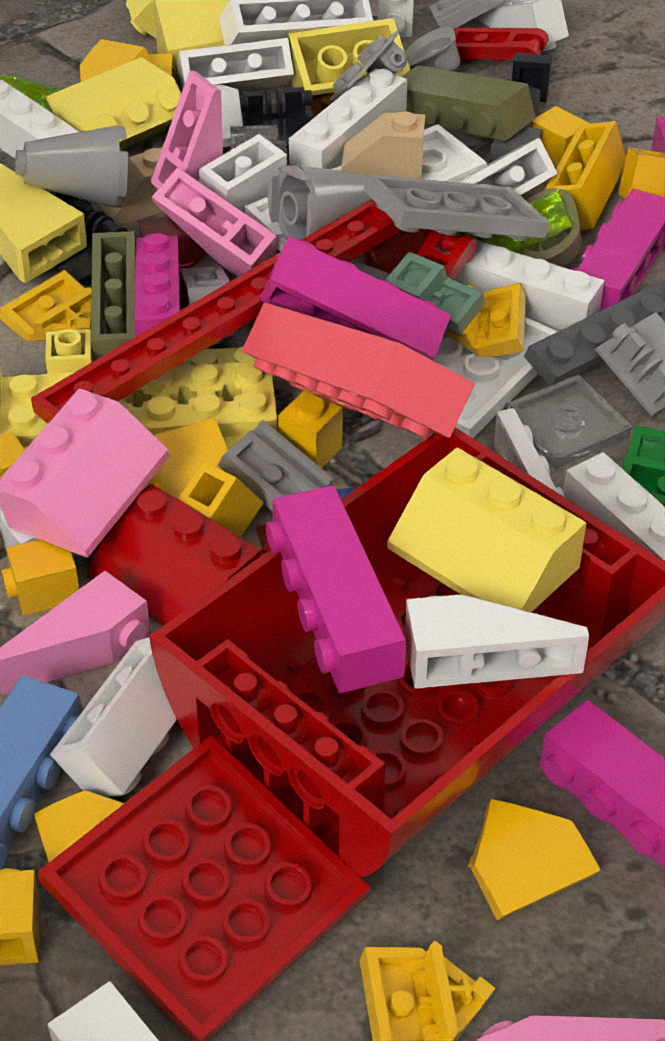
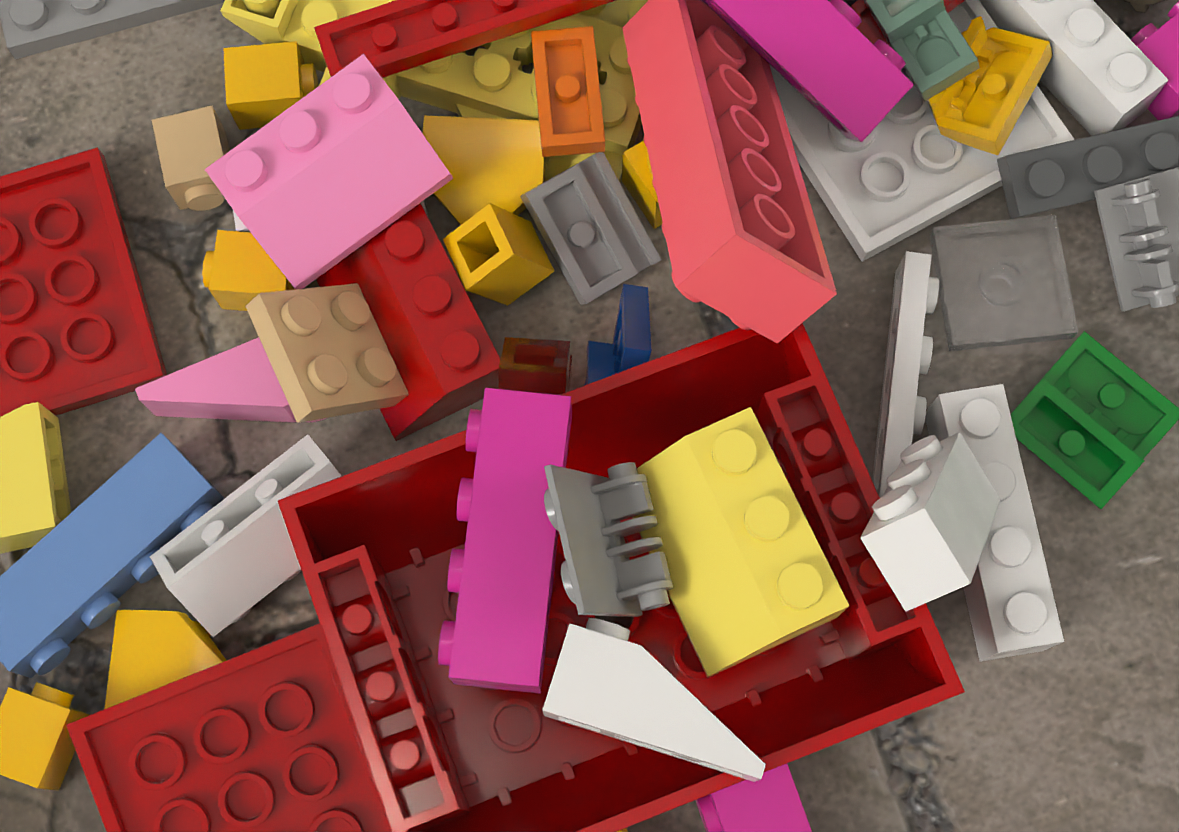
camera: 25 degrees right, 30 degrees up
(127, 577) = (326, 351): none -> tan plate
(223, 392) = (568, 91): none -> orange plate
(409, 550) = (597, 561): none -> light grey hinge
(607, 488) = (931, 520): none -> white brick

